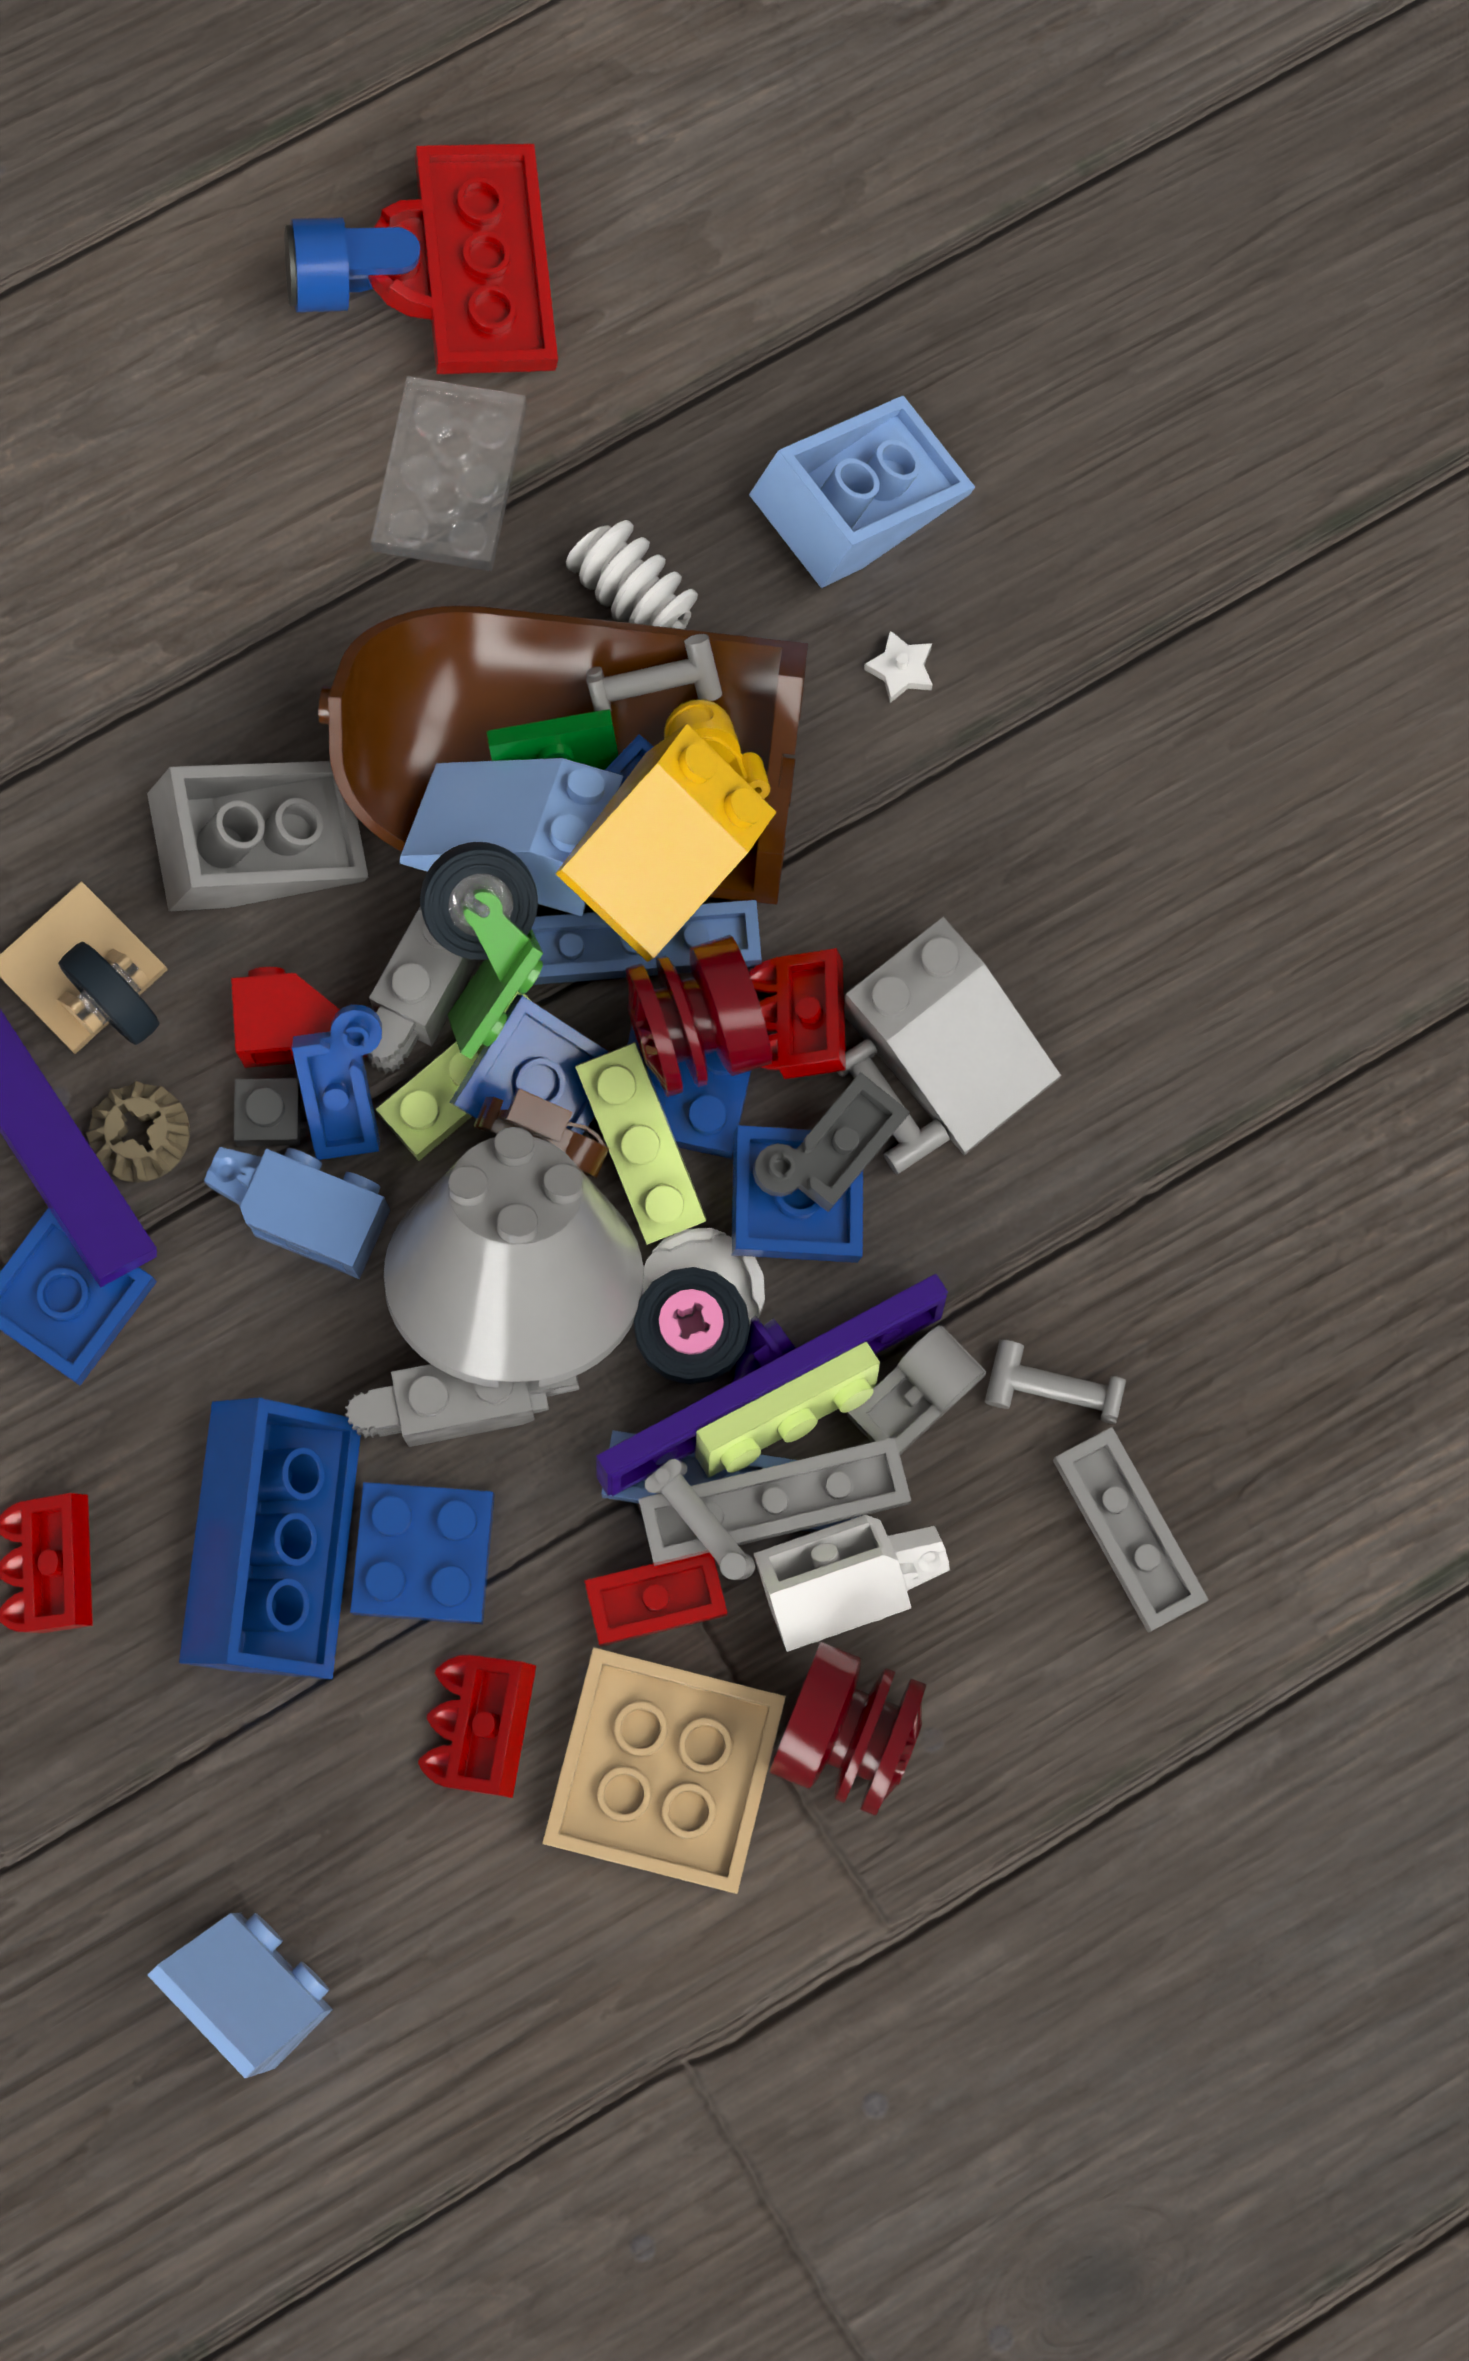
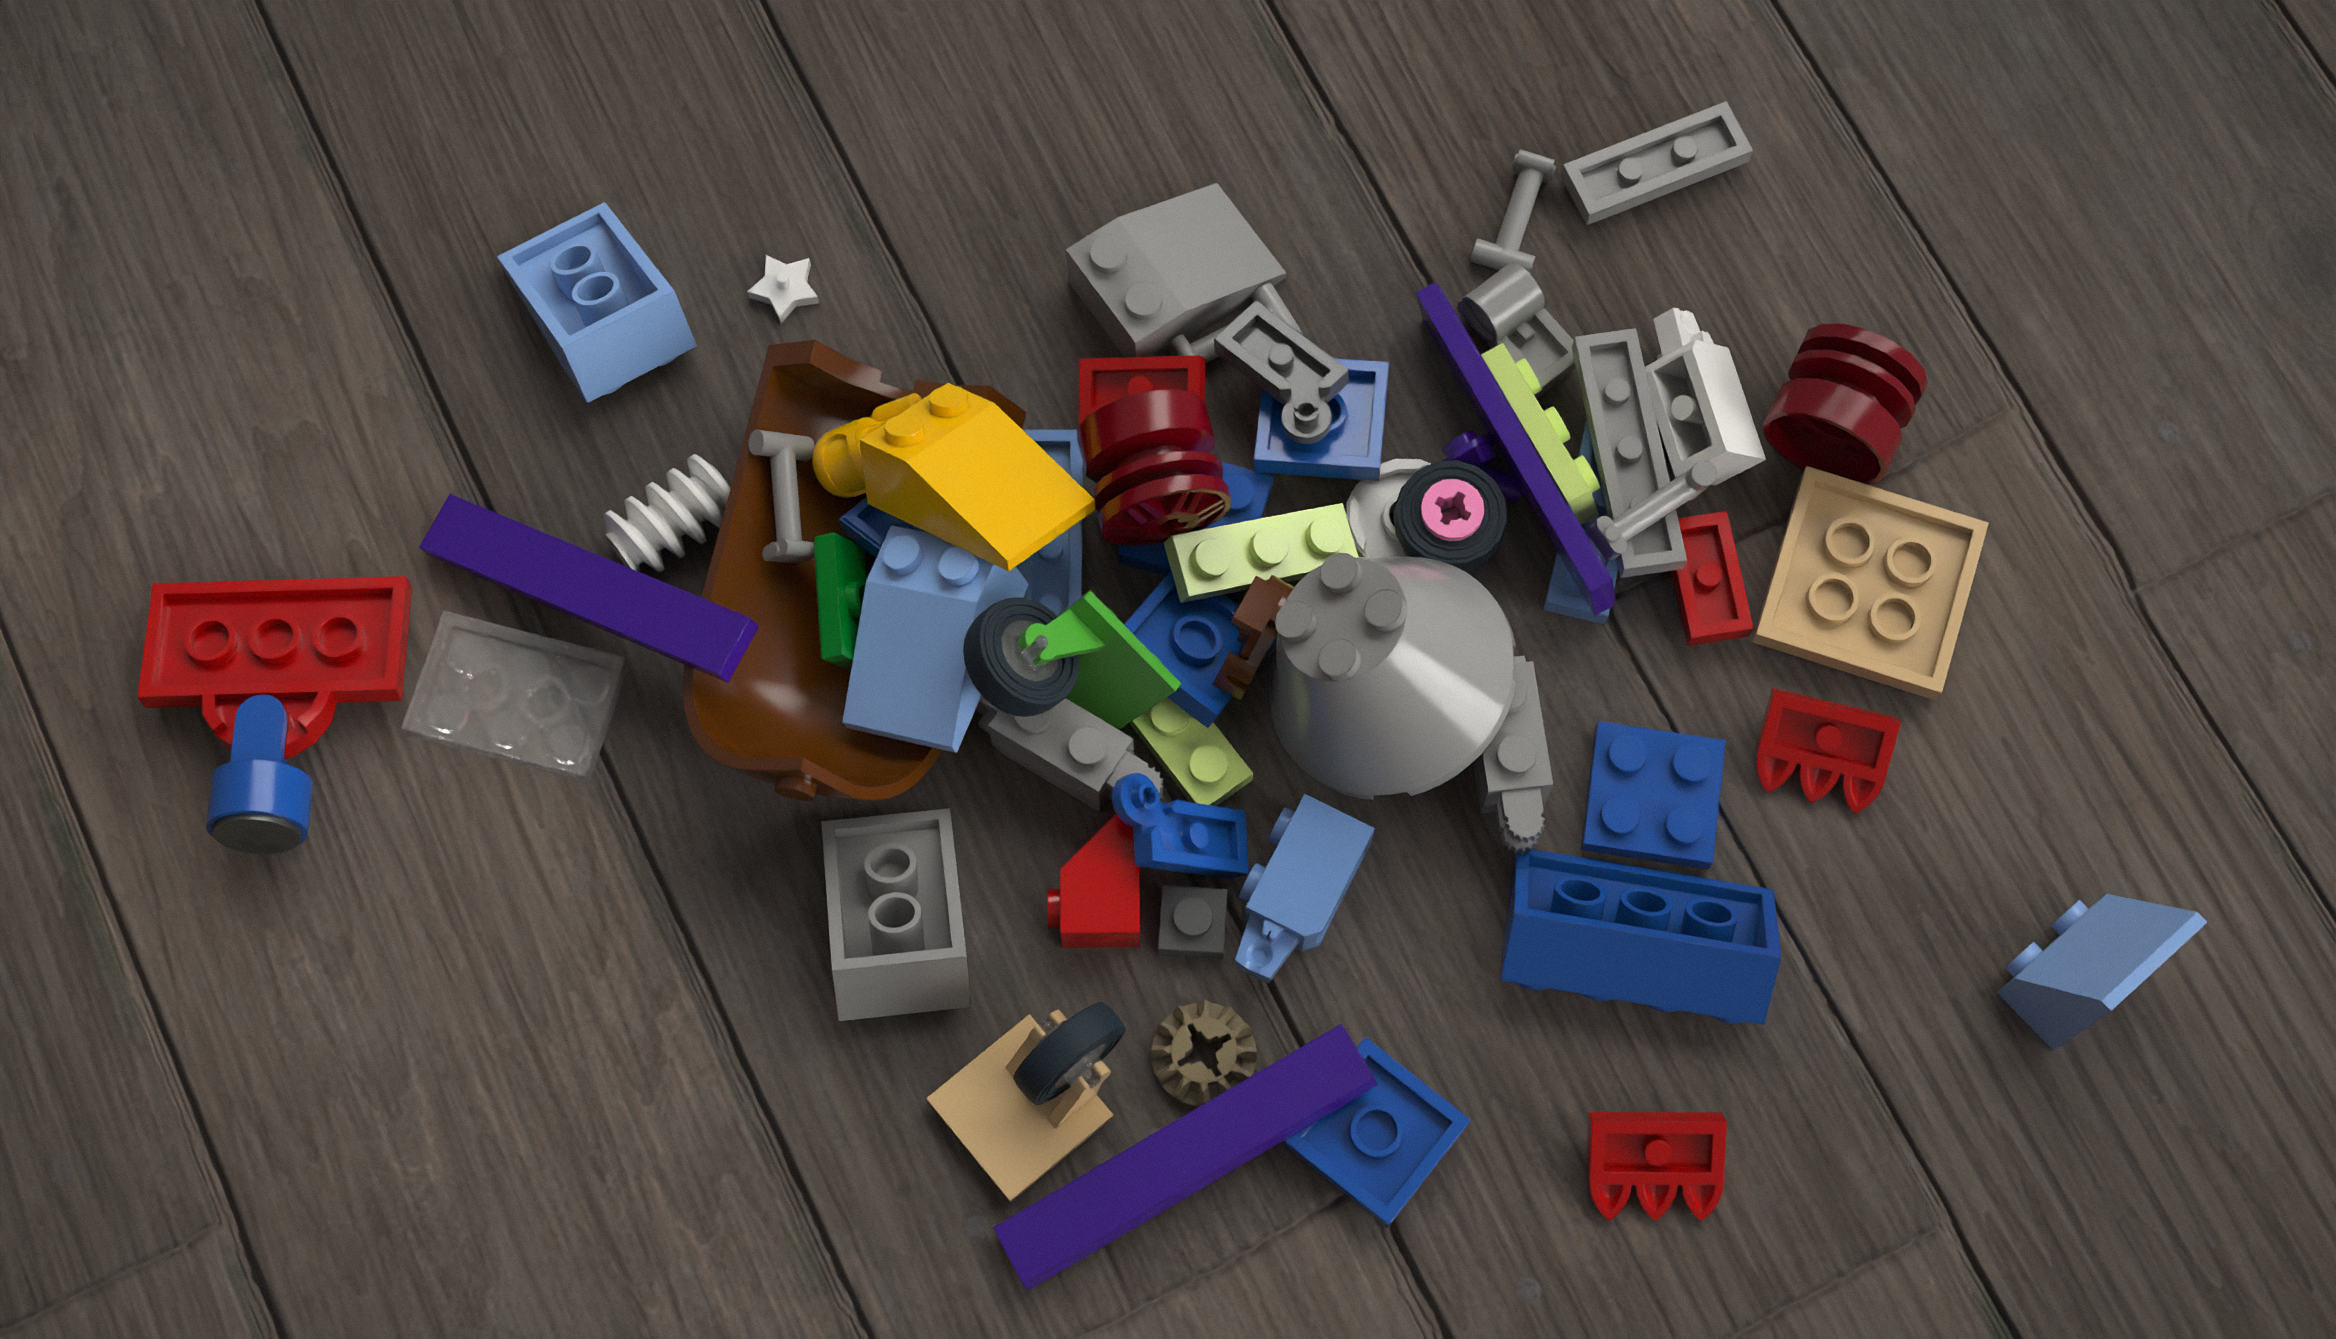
camera: 85 degrees left, 5 degrees down
(545, 515) = (590, 588): none -> dark purple tile

